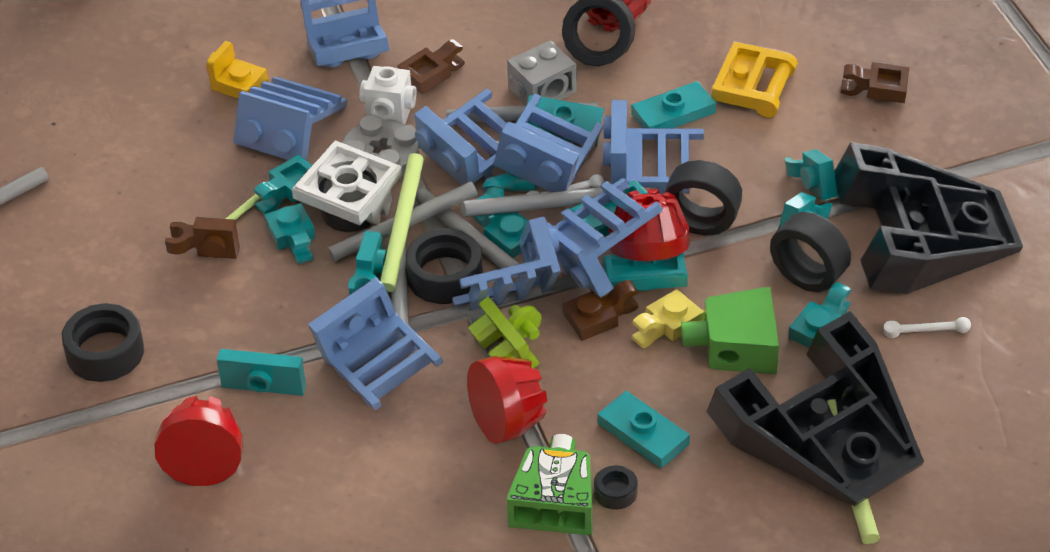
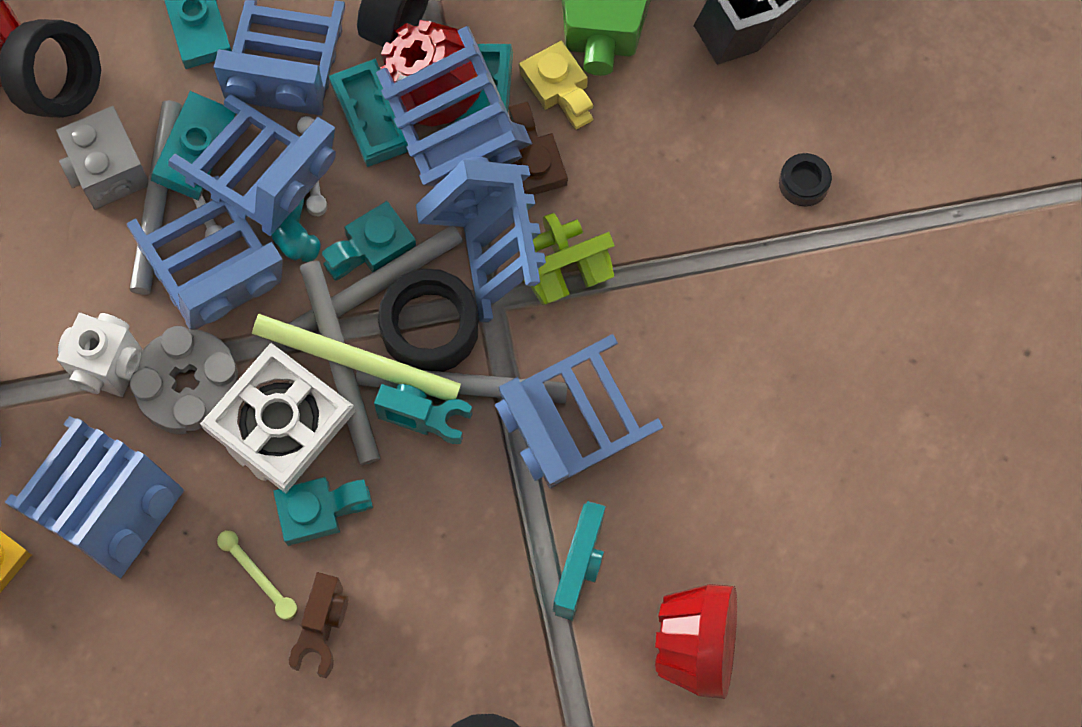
camera: 85 degrees left, 25 degrees up
(280, 184) = (228, 499): teal plate -> none
(432, 68) = (44, 299): reddish brown plate -> none
(505, 397) = (684, 270): red piece -> none
(526, 202) = (346, 200): light grey bar -> none
(552, 489) = (812, 239): bright green torso -> none
(643, 429) = (725, 136): teal plate -> none

